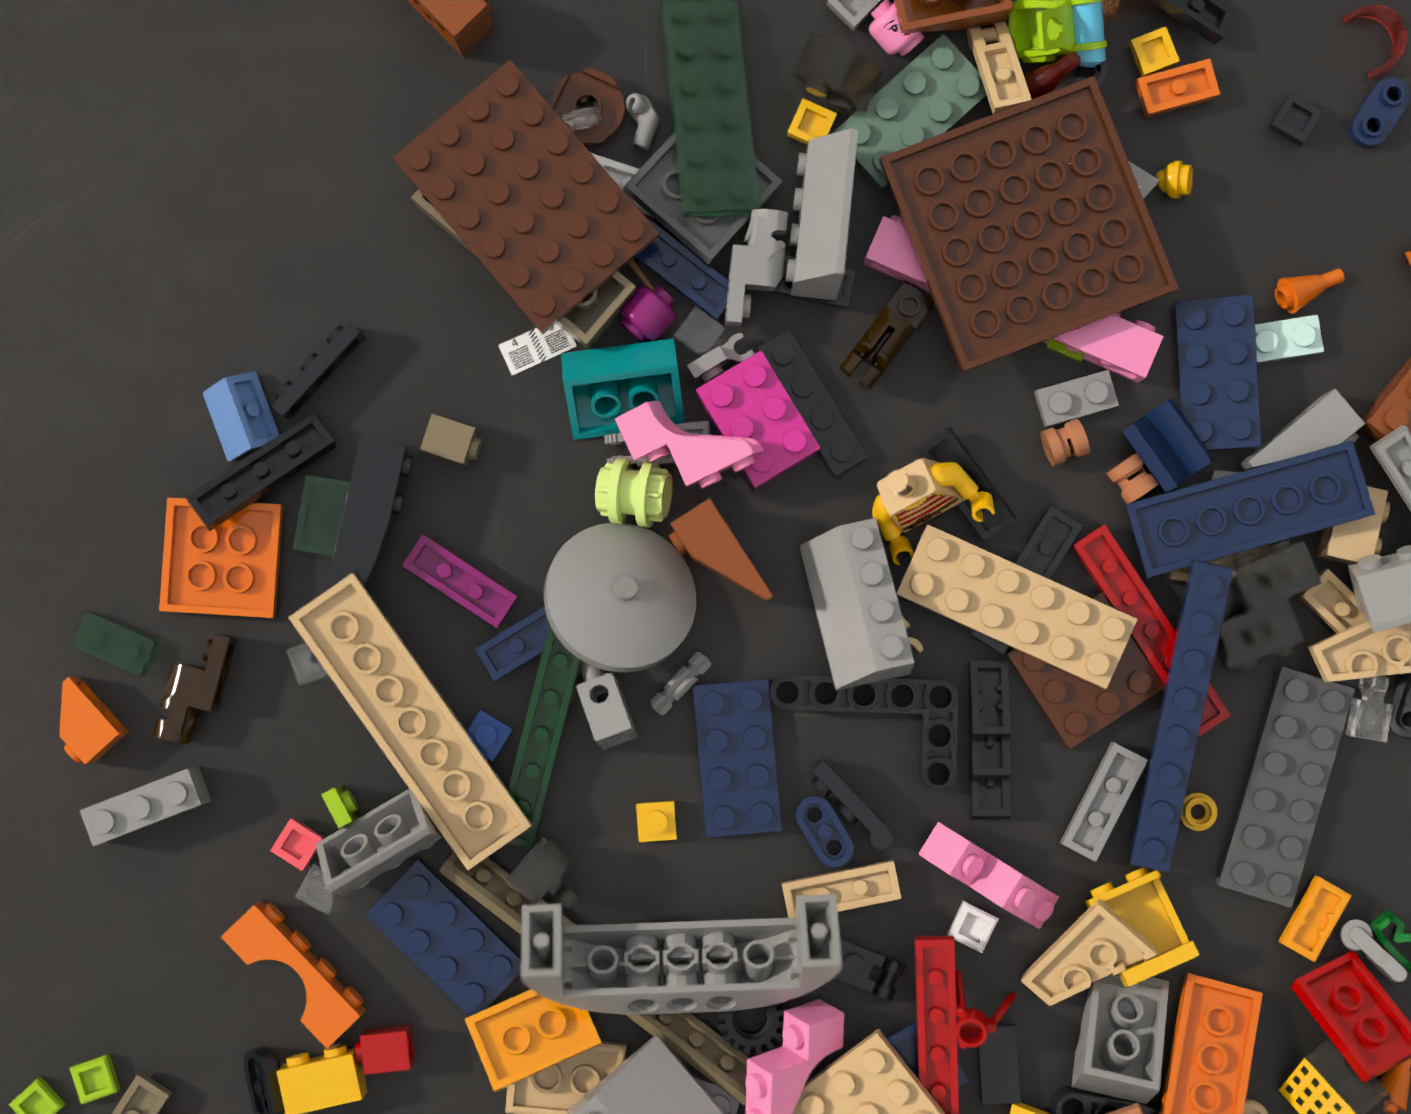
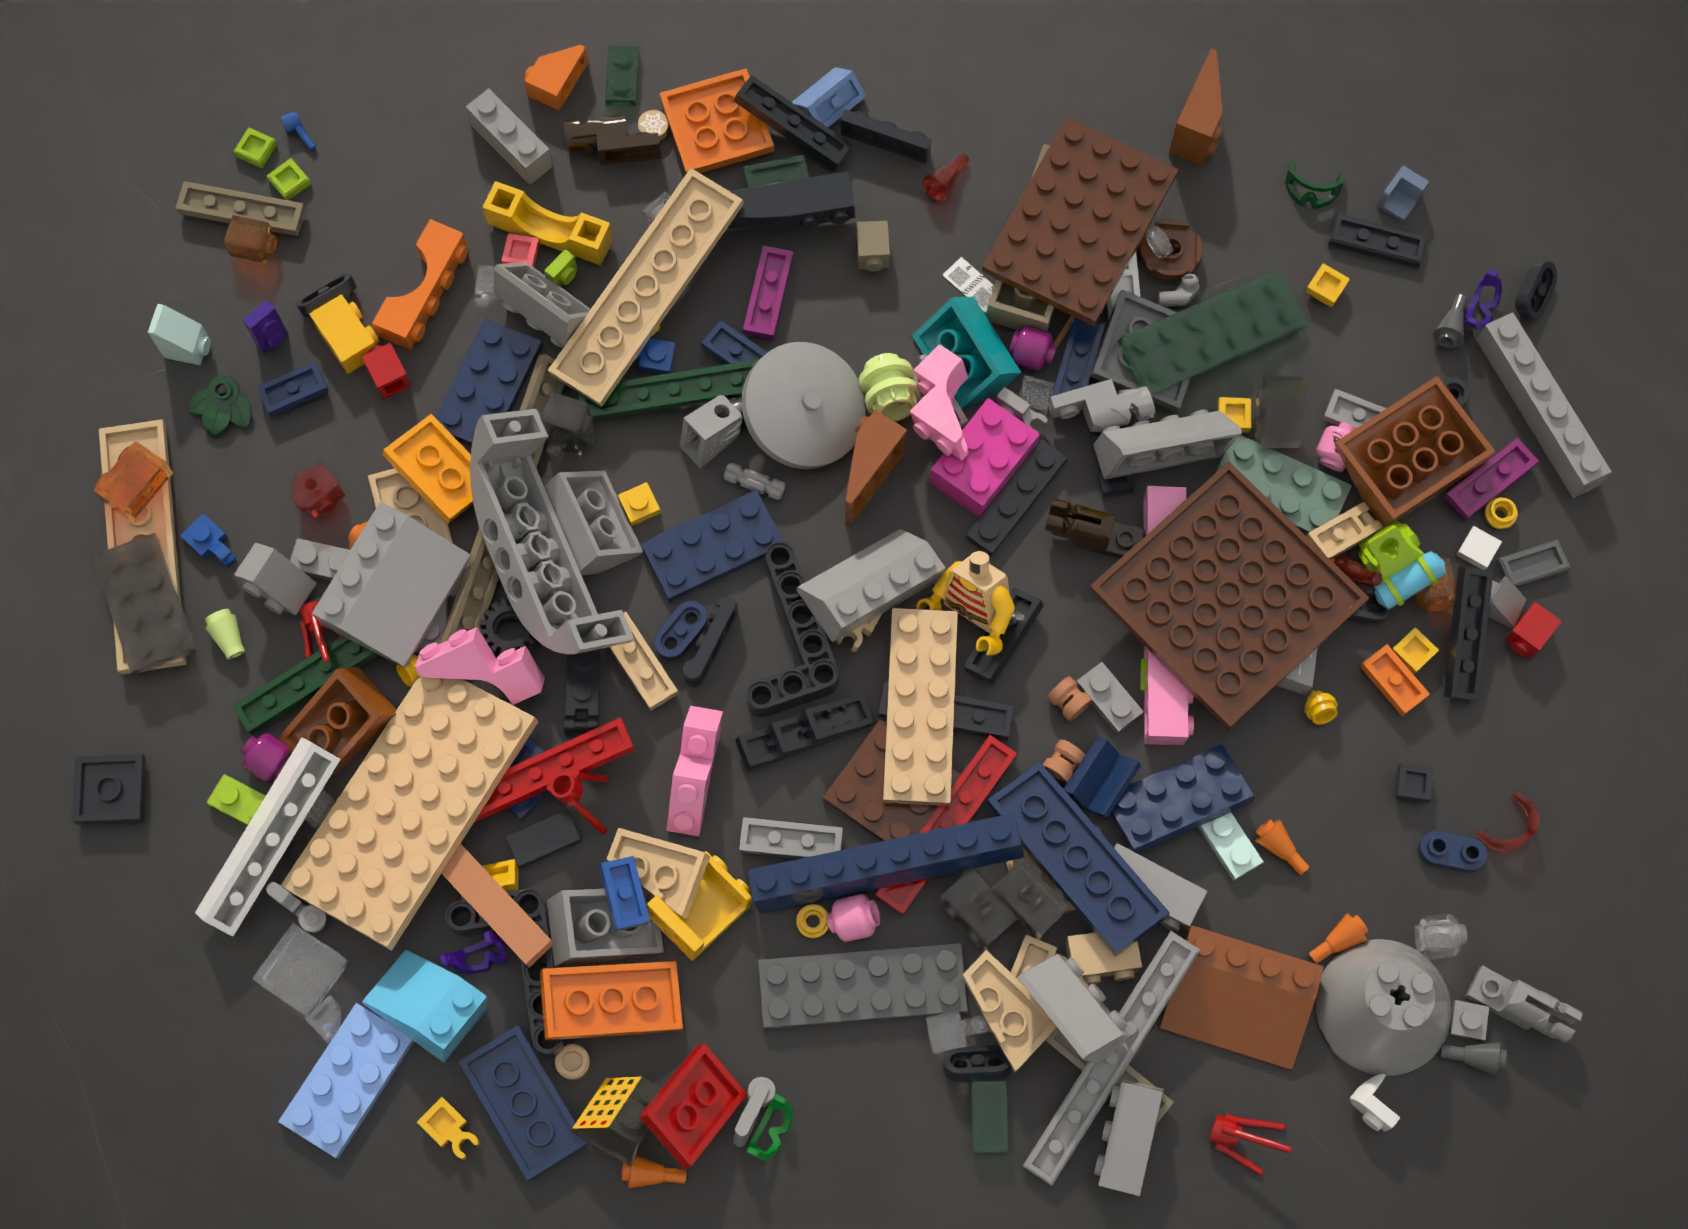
camera: 65 degrees right, 15 degrees down
(23, 1049) = (292, 123): none -> blue hand
(194, 631) = (654, 122): none -> tan tile
(281, 800) = (518, 214): none -> yellow arch
(400, 331) = (940, 182): none -> clear red cone
(659, 881) = (592, 520): none -> light grey slope
(972, 926) = (648, 777): white tile -> none
(1105, 1005) = (624, 893): none -> blue plate
(1215, 768) = (854, 918): none -> bright pink head
(1314, 918) = (761, 1050): light orange plate -> none

